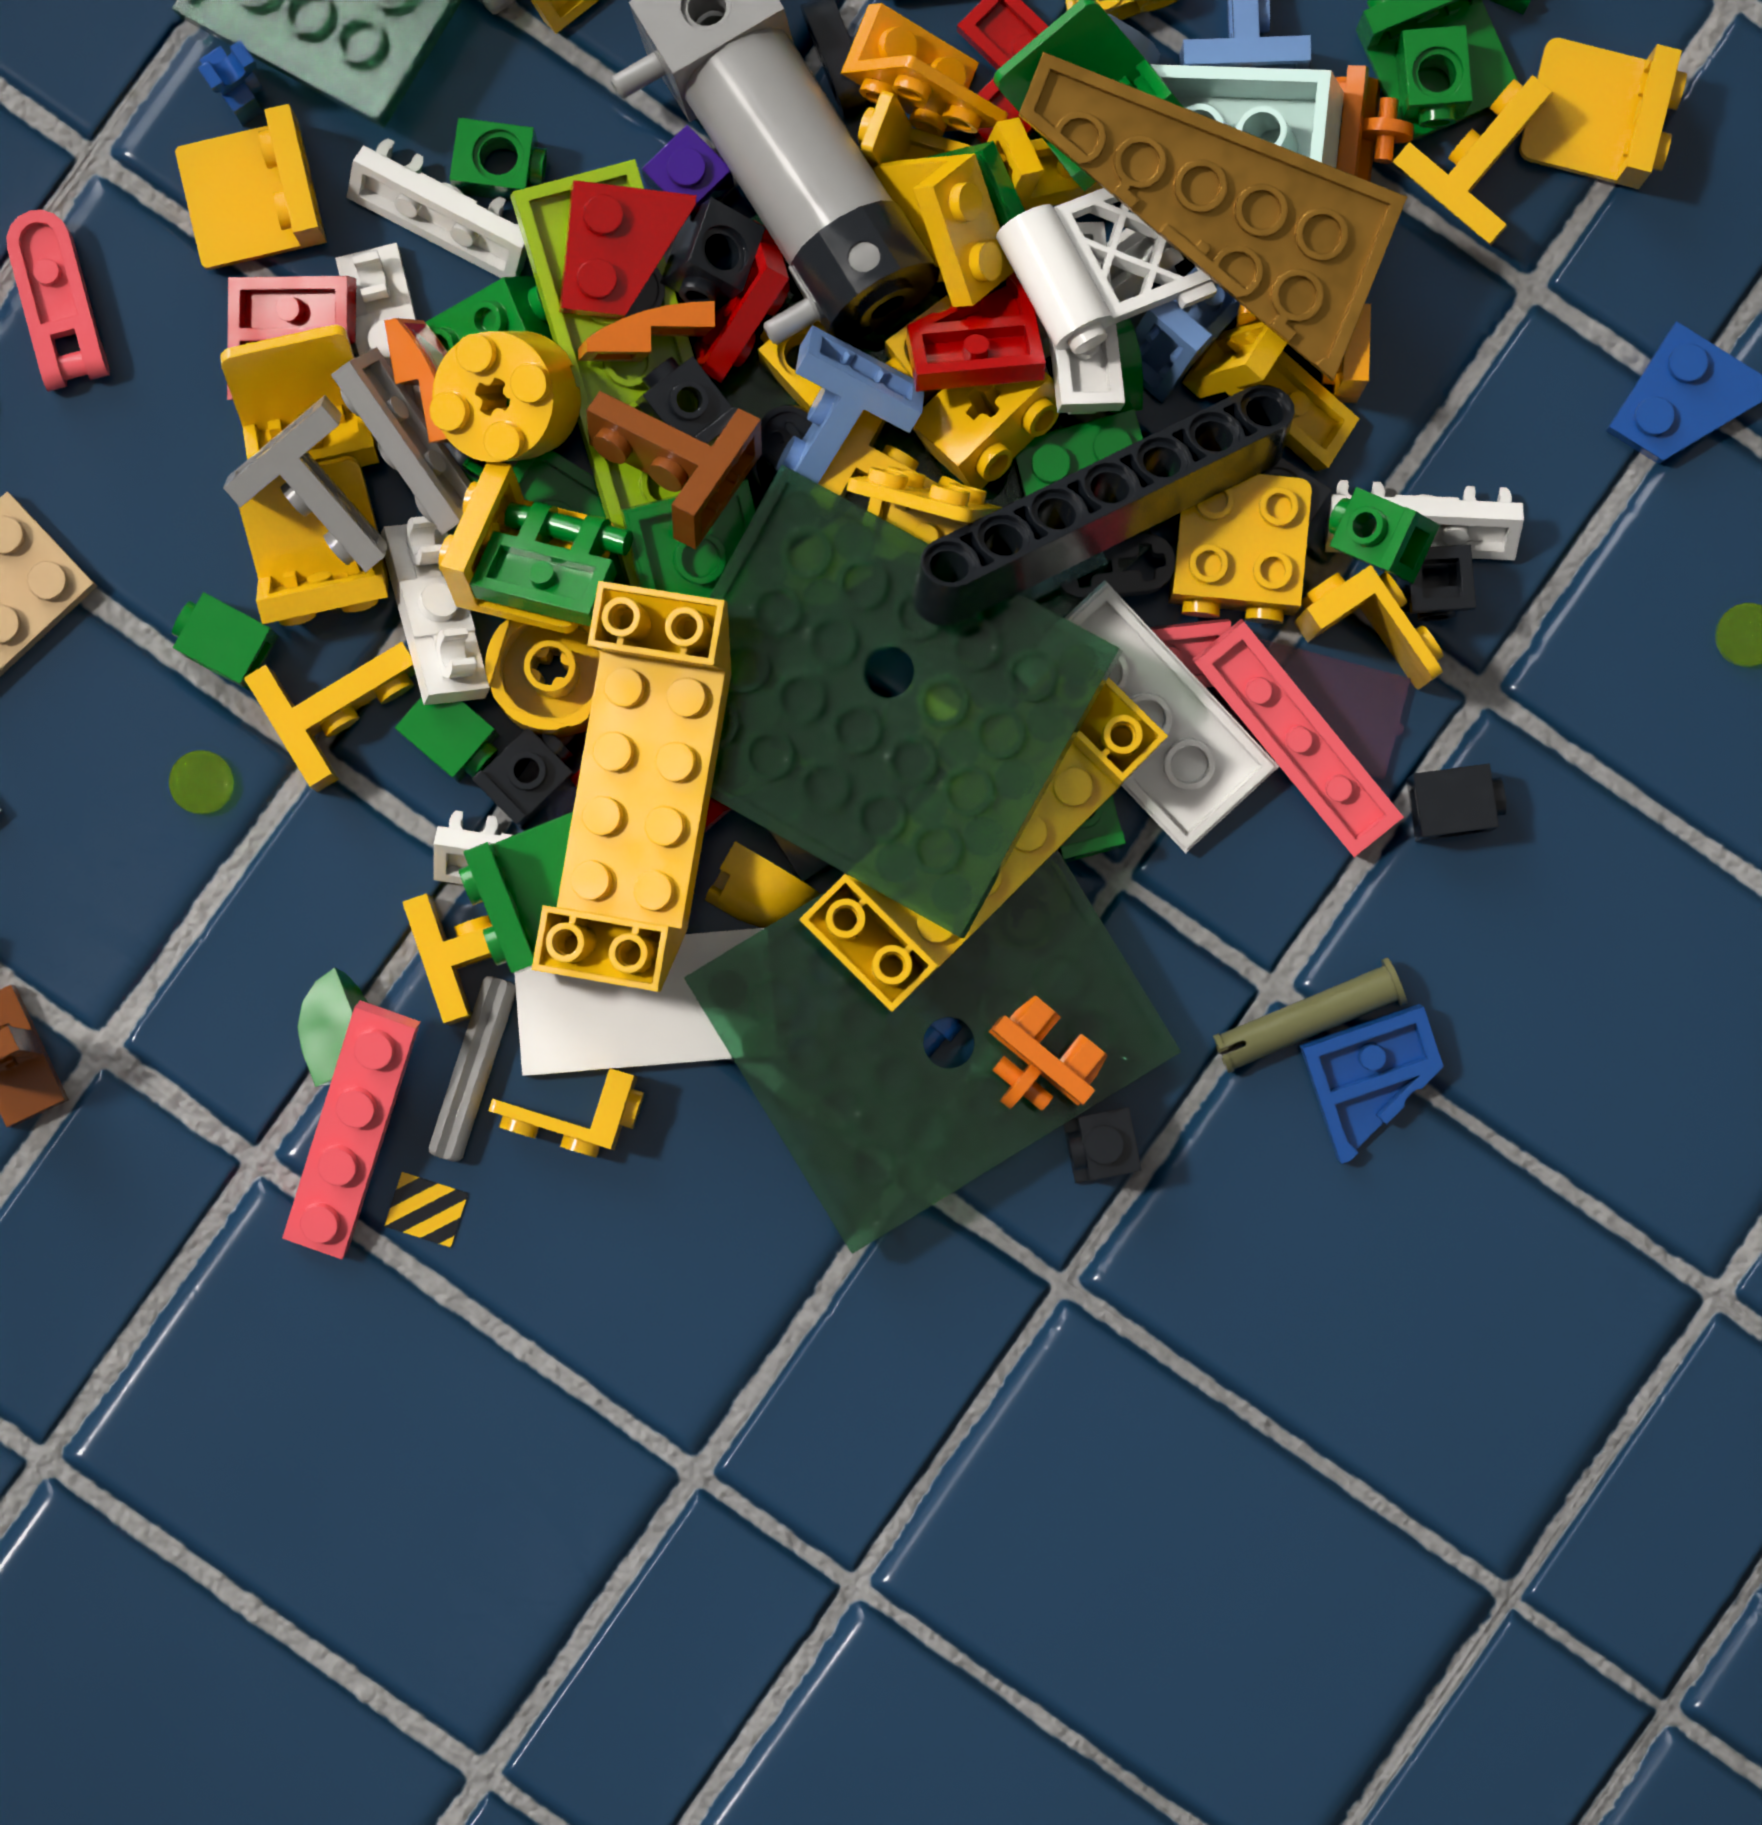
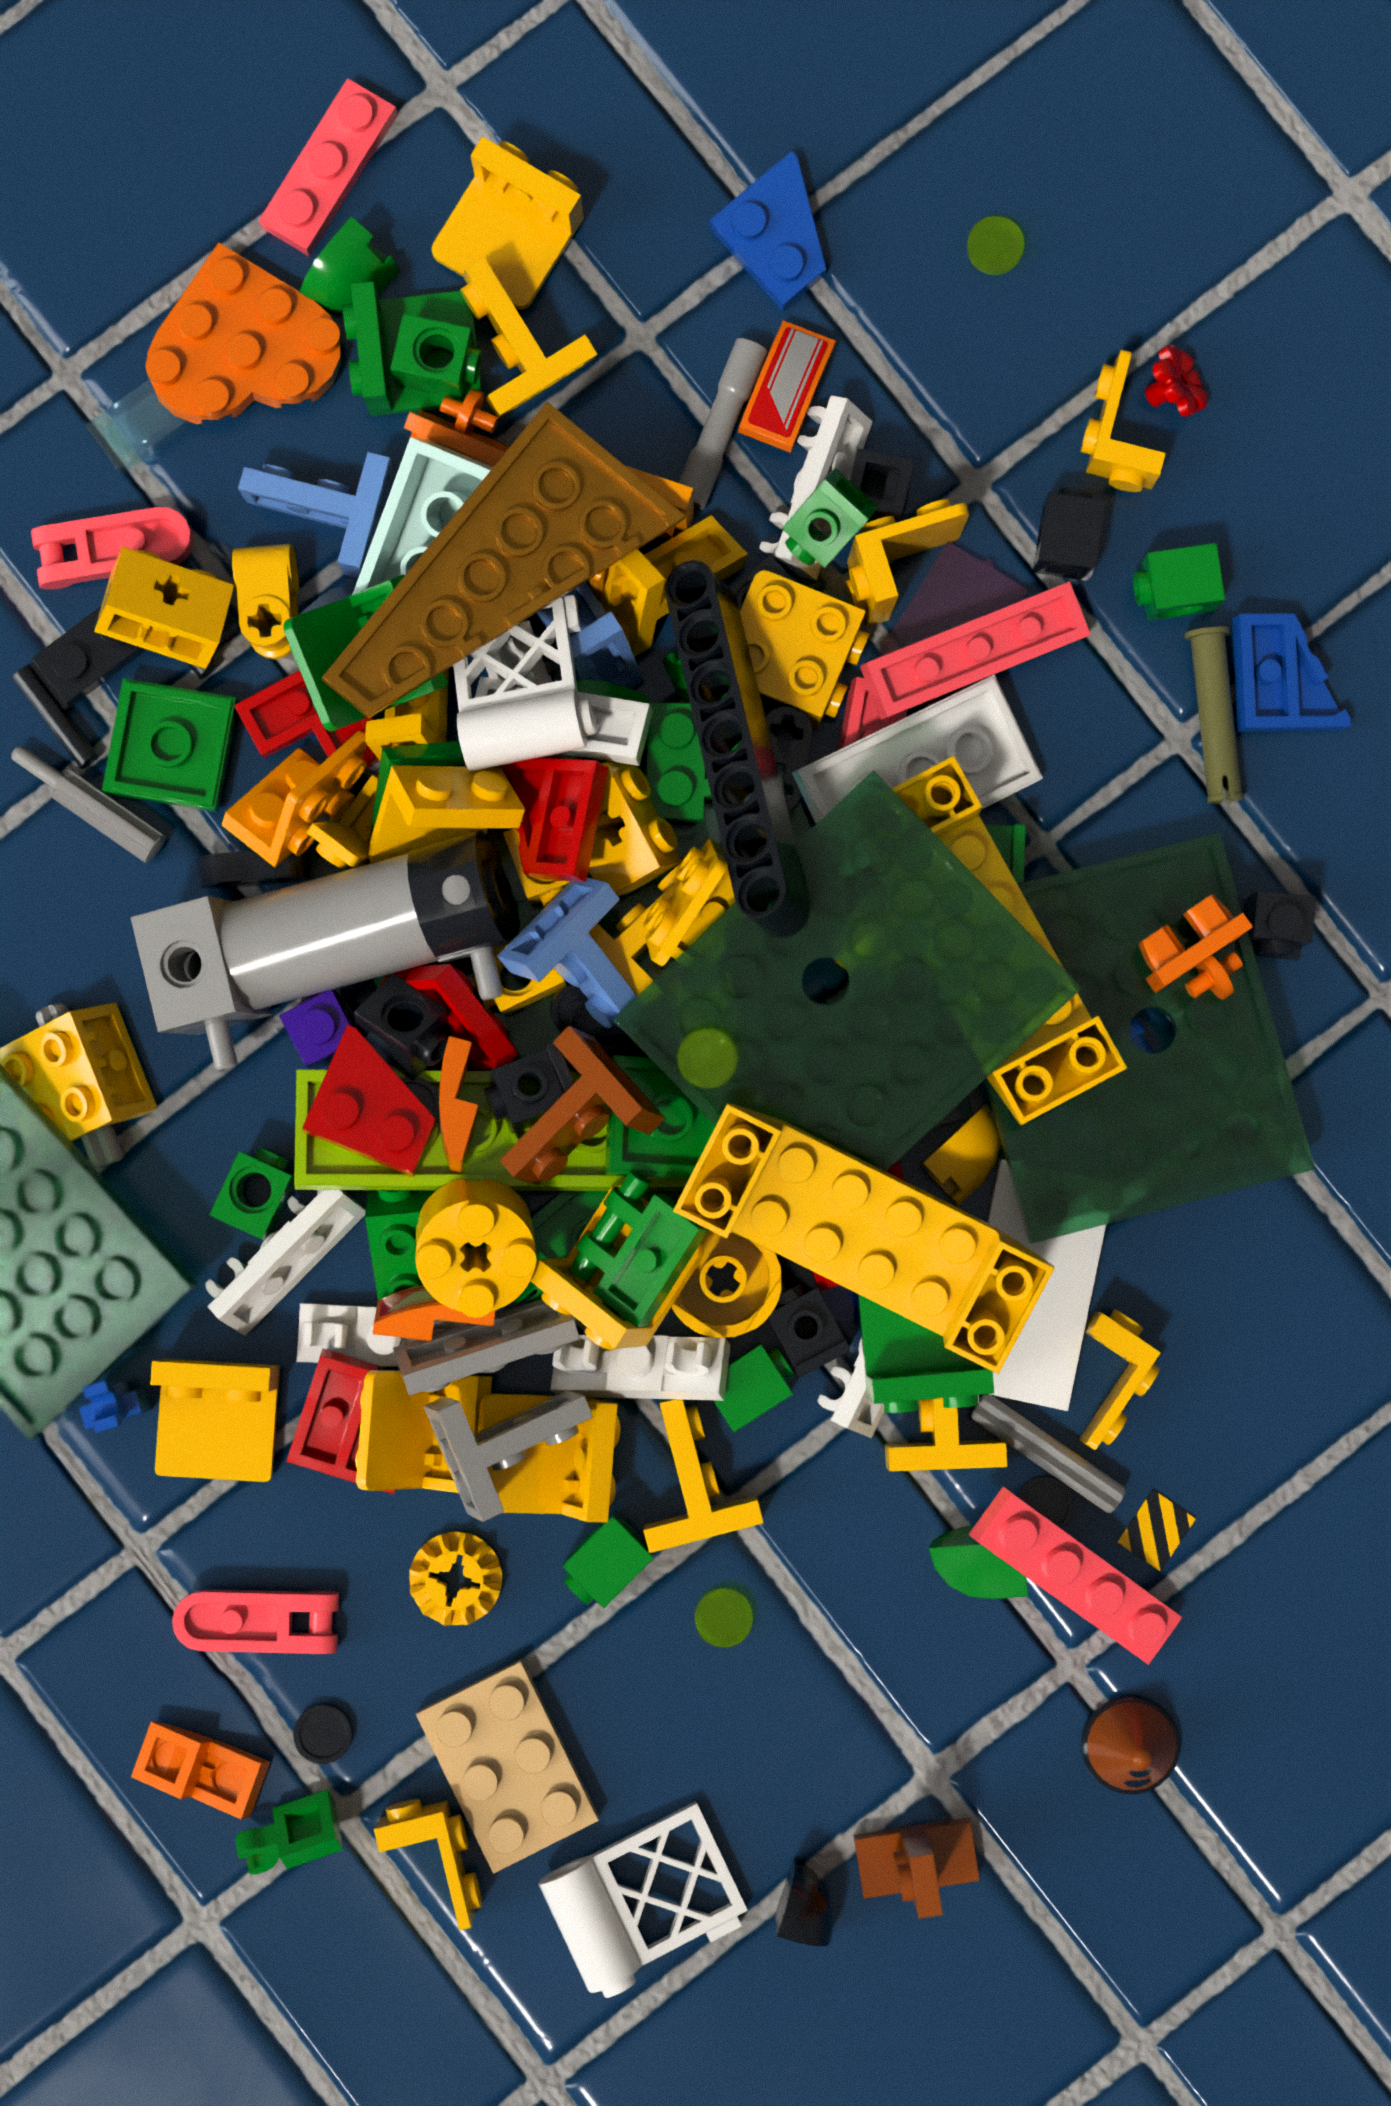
camera: 70 degrees left, 0 degrees up
(180, 510) = (479, 1564): none -> yellow gear
(193, 1246) = (1130, 1745): none -> dark orange hat
(422, 1085) = (1049, 1498): none -> black piece
(771, 573) = (707, 1058): none -> clear neon green piece
(1439, 933) = (1179, 582): none -> green brick
(1501, 402) = (733, 391): none -> light grey piece
(1522, 457) = (786, 386): none -> slope
(1548, 840) = (1124, 464): none -> yellow bracket
(1656, 869) = (1176, 382): none -> red plant

